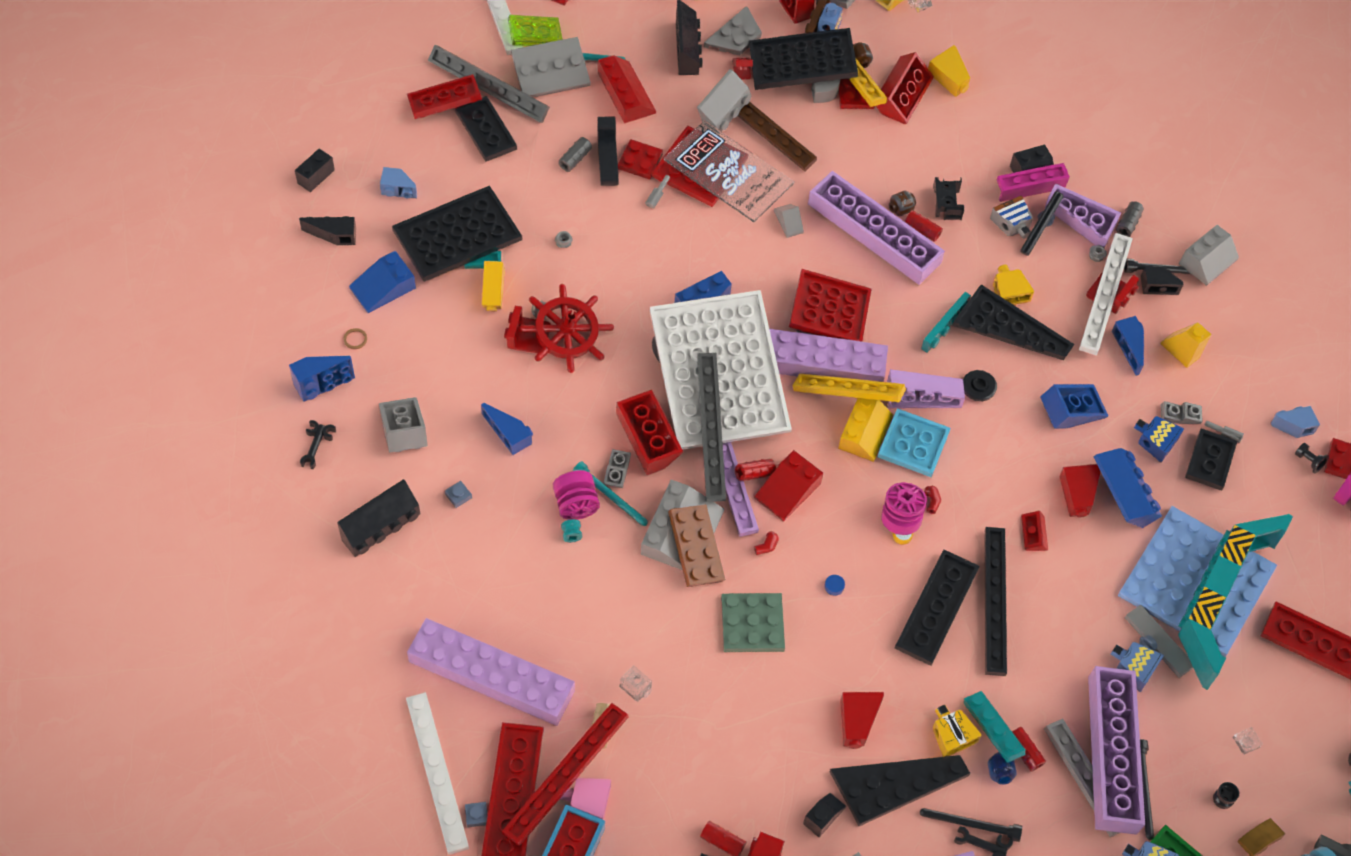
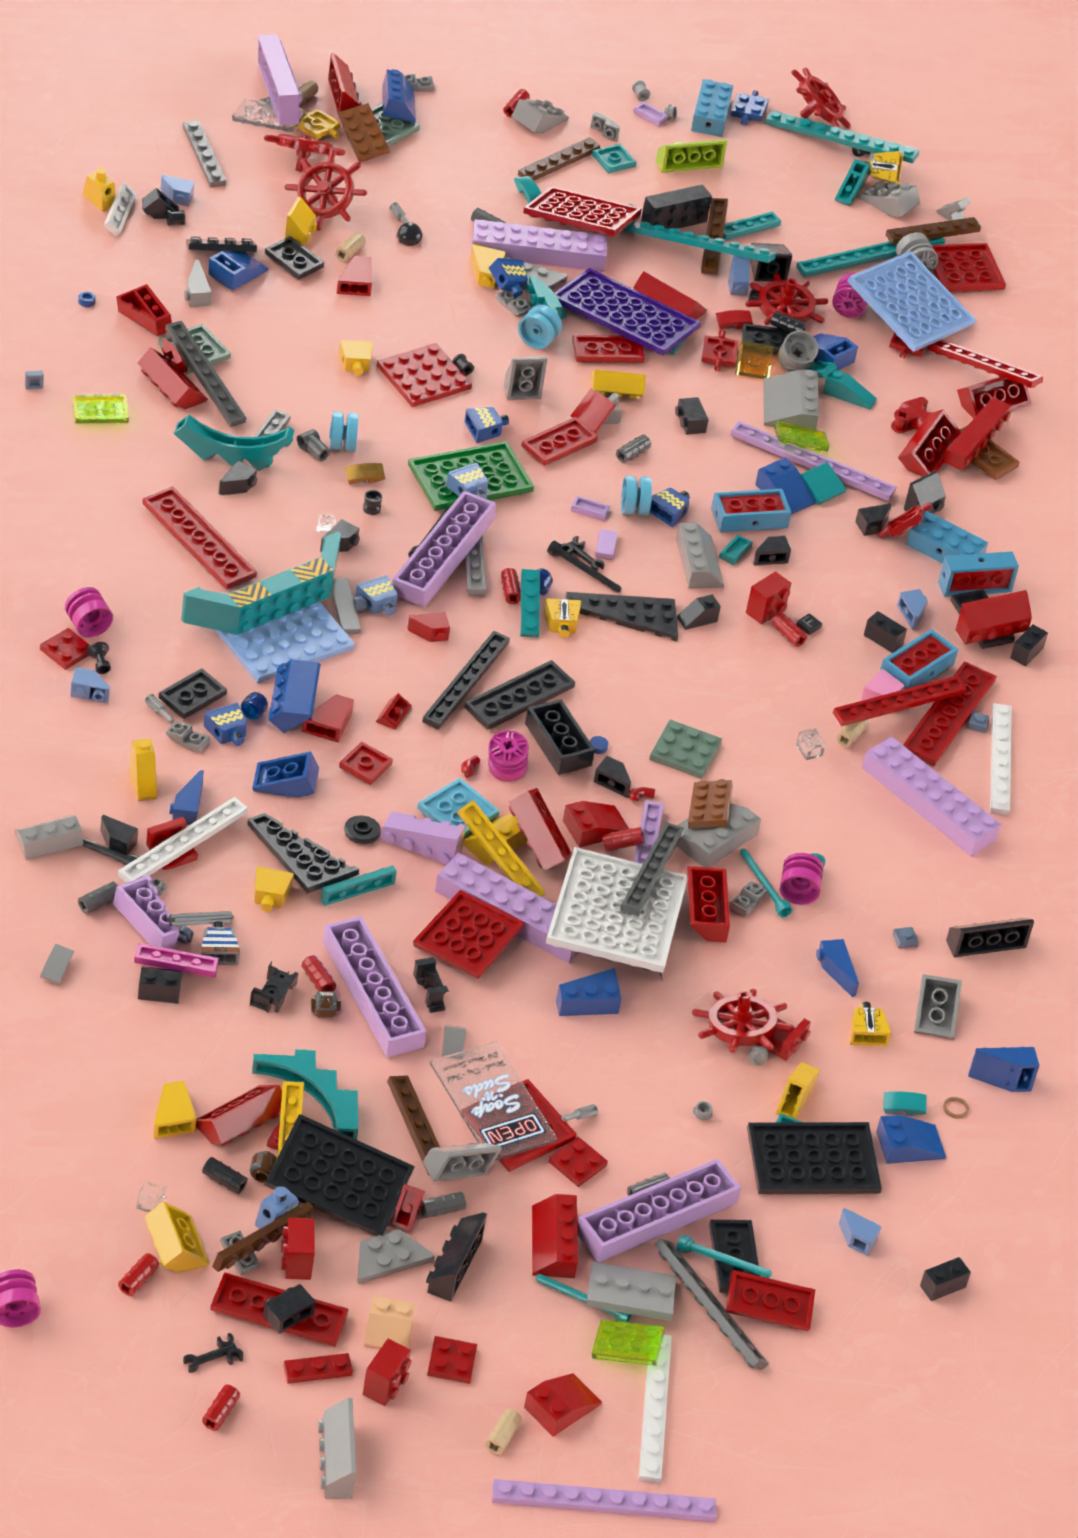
camera: 160 degrees left, 15 degrees down
(318, 432) = (1020, 1037): black bar -> none
(331, 229) = (945, 1210): black slope -> none
(394, 315) = (907, 1102): none -> teal slope
(457, 376) = (869, 1026): none -> yellow torso
(525, 121) = (686, 1244): none -> teal piece
(558, 130) = (658, 1210): none -> lavender brick
(607, 151) = (615, 1170): black beam -> none
(711, 82) = (443, 1205): none -> dark grey axle
(800, 546) = (613, 776): none -> black slope
(828, 429) = (540, 829): none -> slope
(837, 259) = (428, 977): none -> black piece
(858, 716) = (633, 654): red slope -> none
(861, 134) = (320, 1084): none -> teal arch
(872, 561) = (559, 736): none -> black brick
(883, 39) = (224, 1175): none -> black axle
(1020, 455) = (366, 763): none -> red plate
(1065, 649) = (430, 626): none -> red slope
(1116, 150) = (57, 964): none -> light grey slope
(1152, 467) = (254, 705): none -> clear blue head
(1222, 726) = (349, 535): none -> slope

